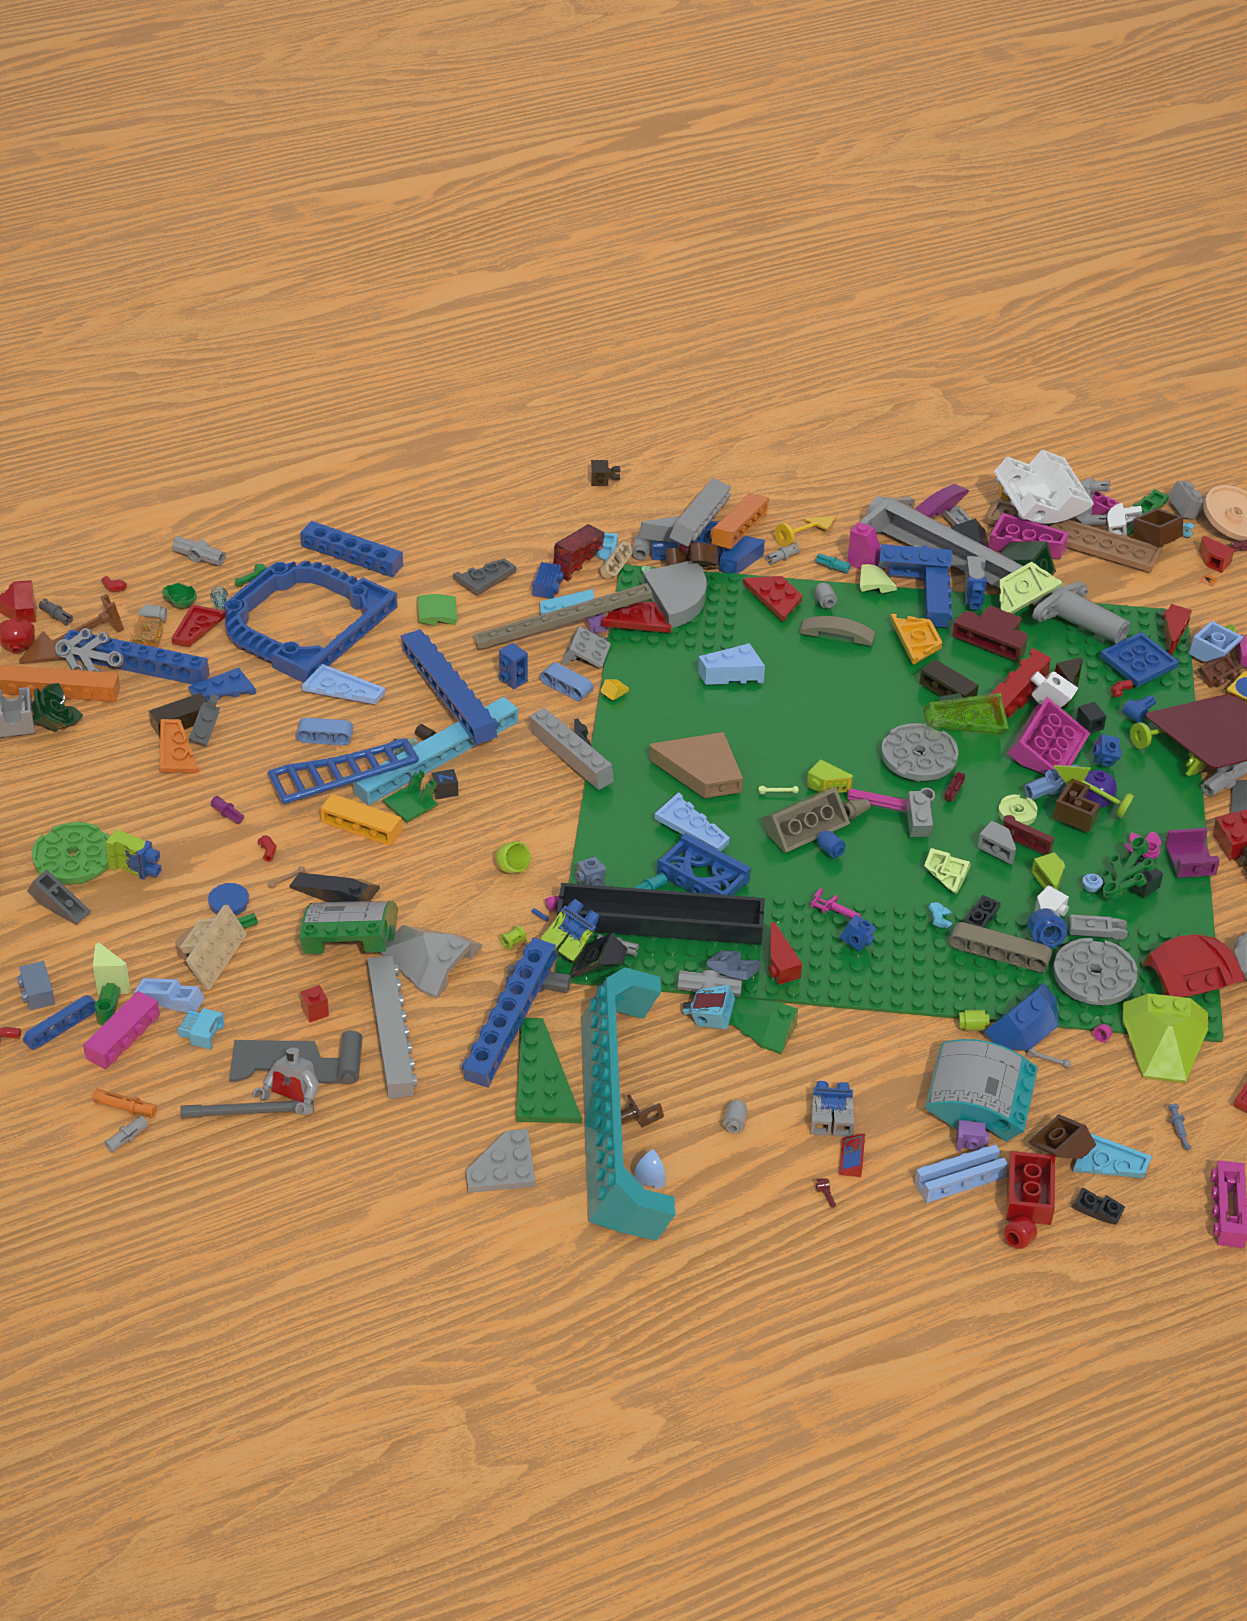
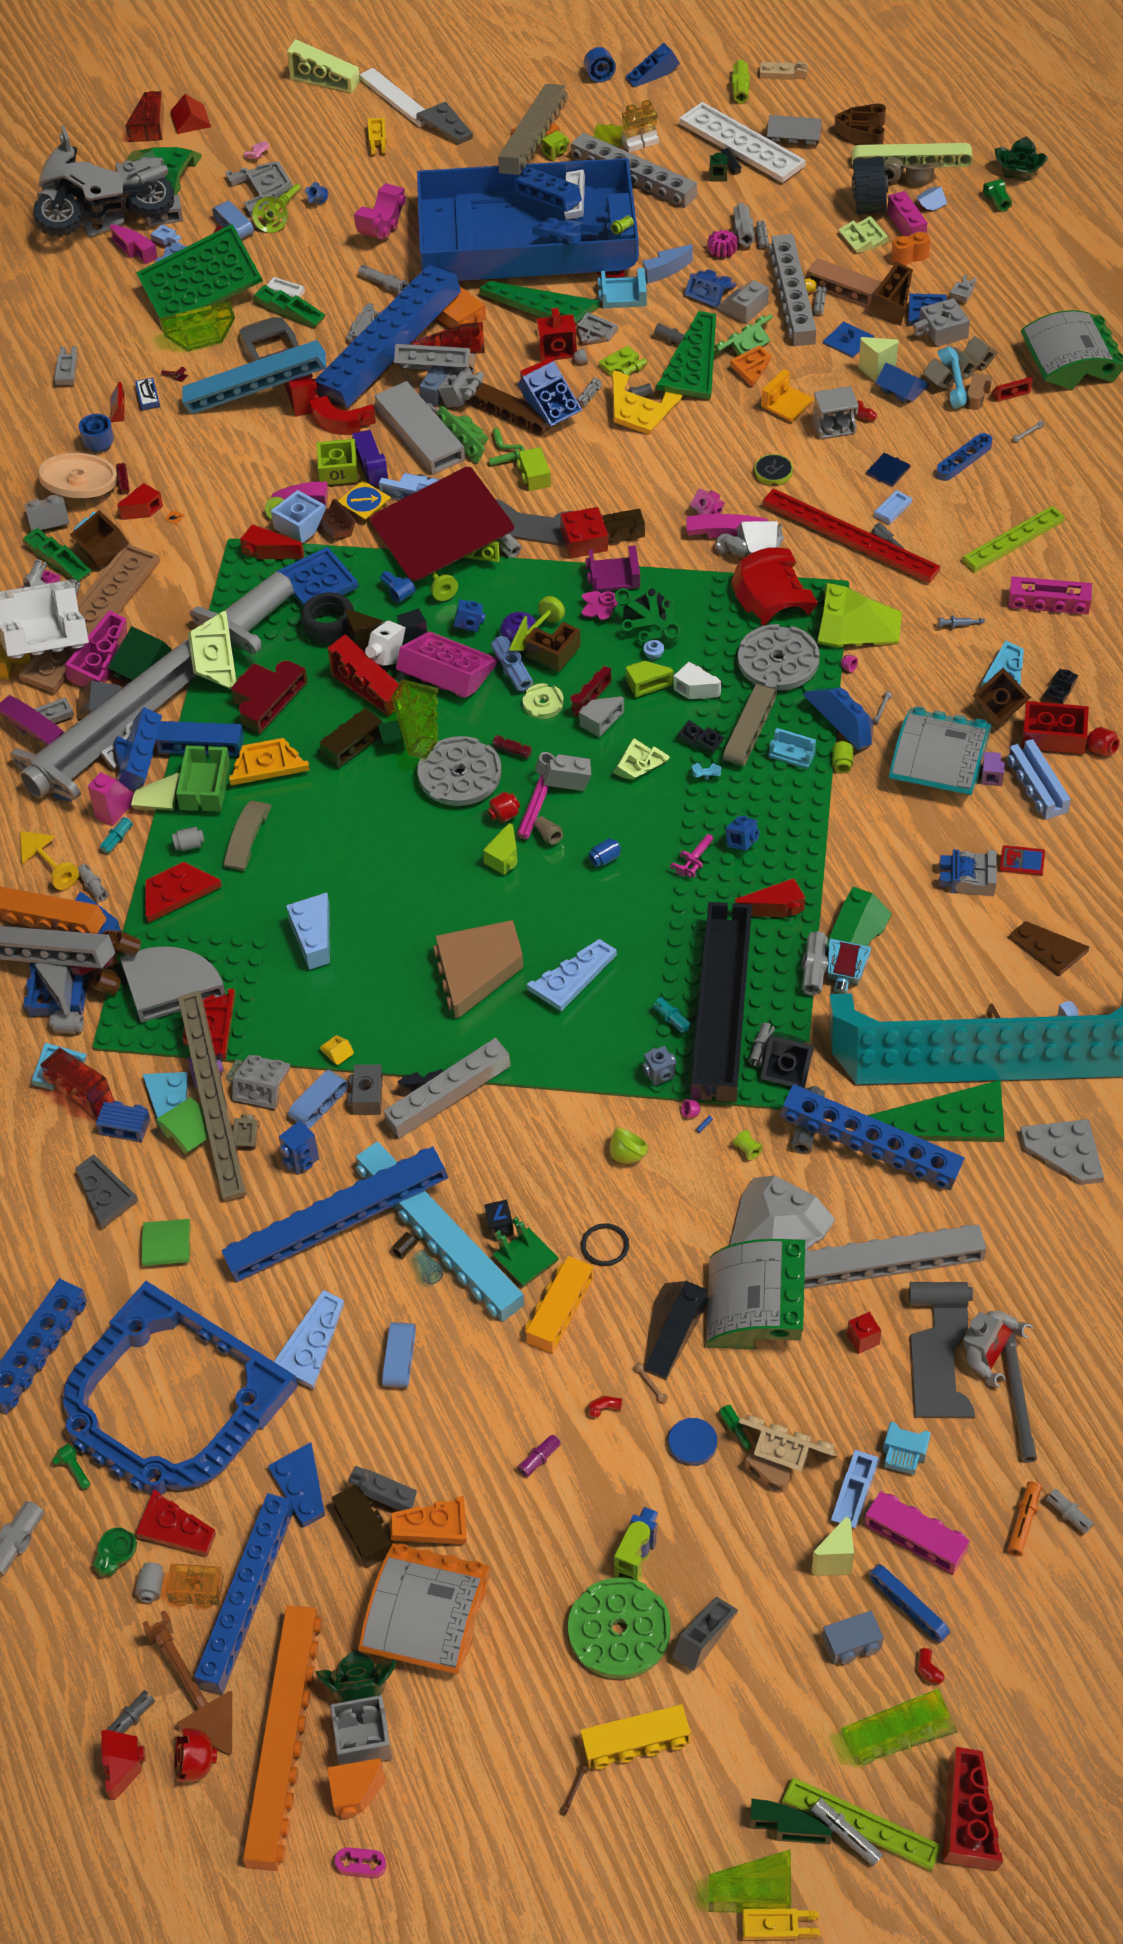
camera: 85 degrees left, 10 degrees up
(86, 651) = (243, 1647): light grey plant -> none
(104, 739) = (424, 1608): none -> light grey slope
(107, 1003) = (874, 1553): green piece -> none
(114, 585) = (76, 1645): red arm -> none
(219, 597) = (124, 1501): clear light blue cone -> none
(339, 780) = (461, 1341): blue bar -> none
(421, 839) = (599, 1262): none -> black piece
(537, 604) = (185, 1125): none -> bright green slope
(537, 642) = (245, 1131): none -> dark tan bracket
(571, 924) = (762, 1075): hips -> none
(574, 706) = (366, 1101): none -> dark grey brick
(610, 561) = (90, 1048): tan beam -> none
(694, 850) = (658, 981): blue fence -> none
(731, 965) = (792, 938): sand blue slope -> none
(735, 1116) = (987, 950): light grey brick -> none
(743, 1171) = (1049, 947): none -> reddish brown wing
(762, 789) = (512, 912): yellowish green hinge -> none
(806, 819) = (566, 872): dark tan slope -> none
(823, 1185) = (1063, 885): dark red hand -> none
(876, 777) = (503, 807): none -> red head
(888, 596) = (202, 782): none -> bright green piece
(972, 977) = (792, 748): none -> medium azure hinge
(974, 581) = (188, 699): hips -> none
(1043, 919) = (735, 681): blue piece -> none
(1095, 654) = (322, 604): none -> black tyre
(1097, 926) = (717, 652): light grey hinge -> none
(1117, 688) = (361, 601): red arm -> none
(1120, 516) = (77, 570): white brick -> none

